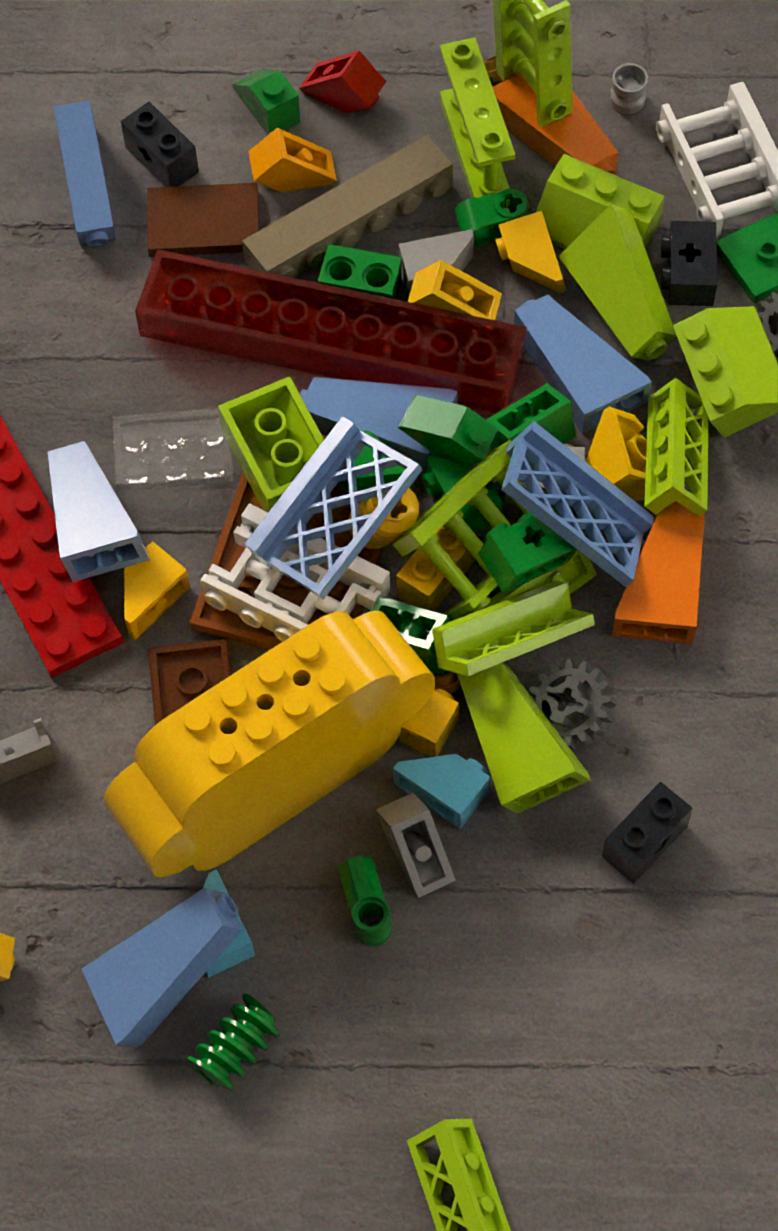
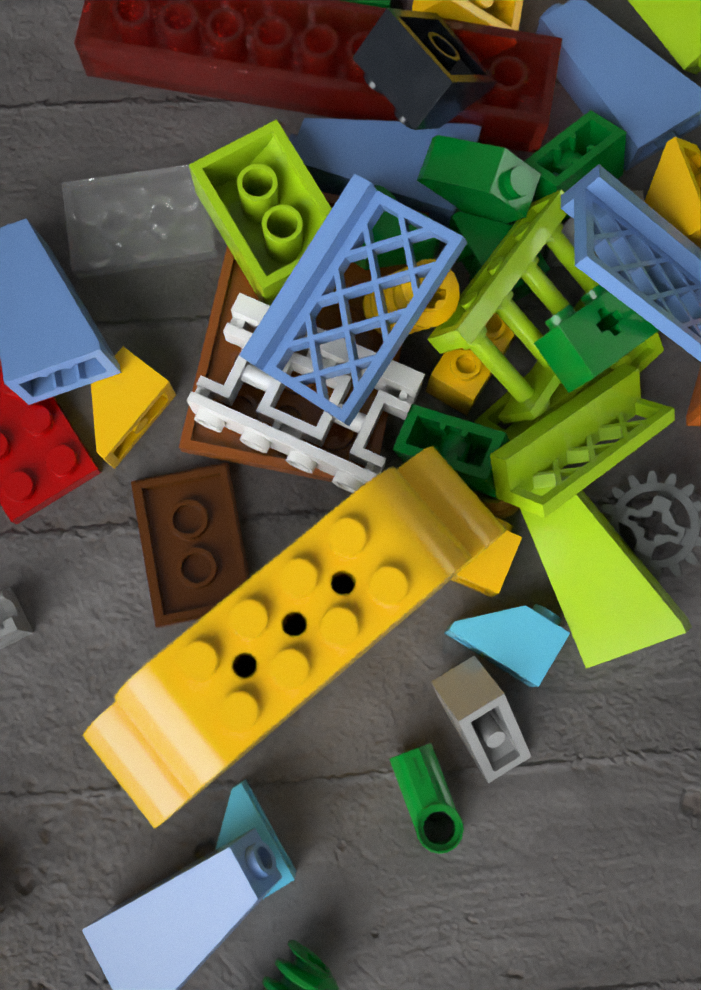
camera: 10 degrees left, 15 degrees up
(409, 344) = (421, 68): none -> black slope

